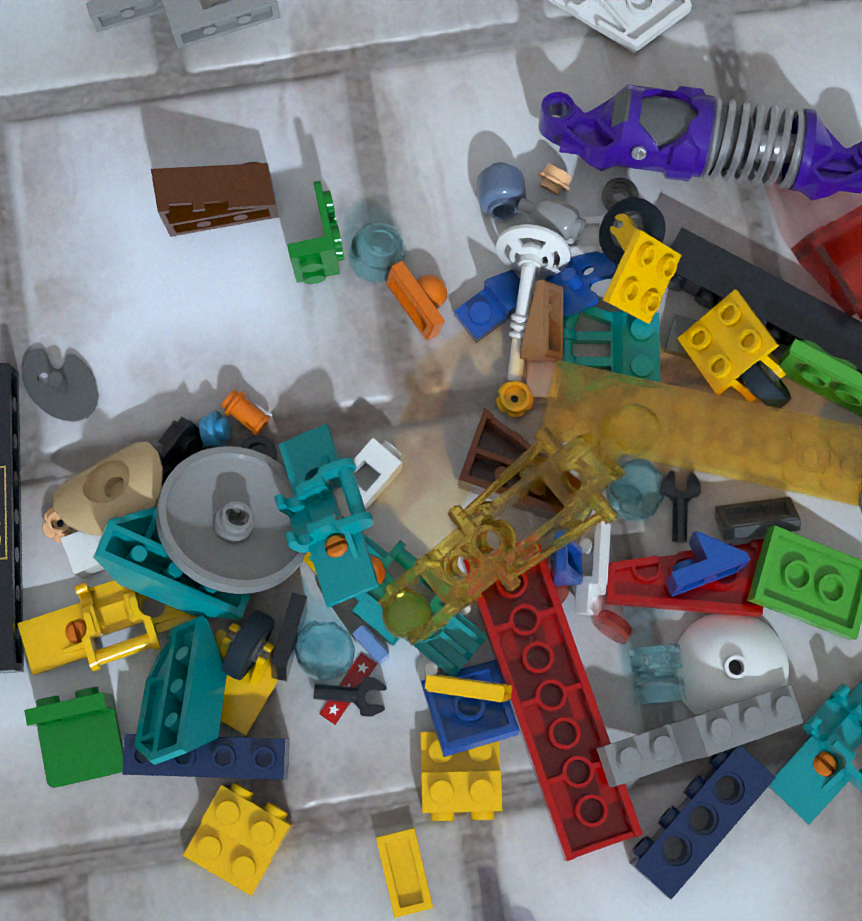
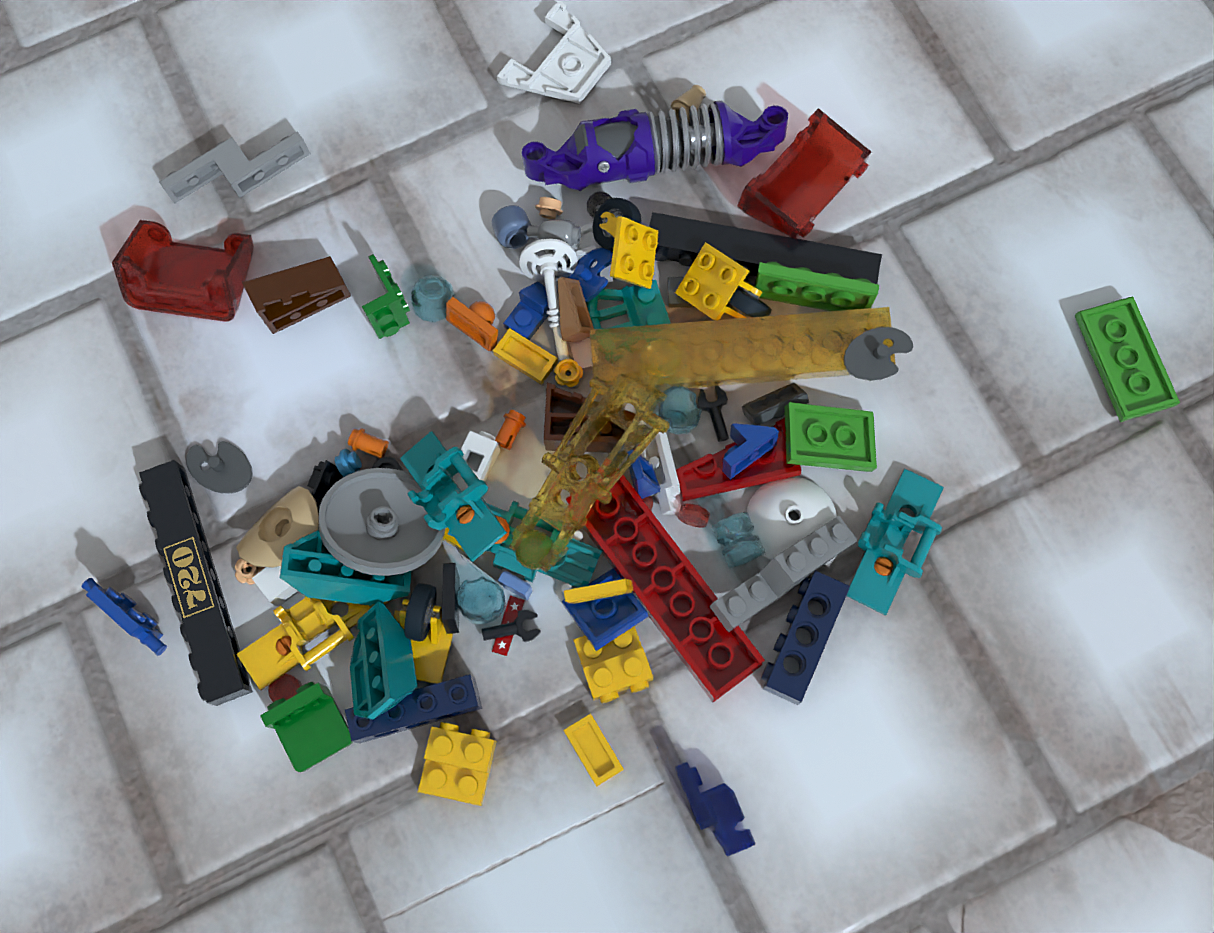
camera: 15 degrees left, 5 degrees down
(62, 682) = (284, 687): none -> clear red tile
(81, 130) = (180, 276): none -> clear red windscreen
(422, 447) = (510, 429): none -> orange pin
(468, 360) = (525, 356): none -> yellow tile
(771, 93) = (691, 97): none -> tan cone

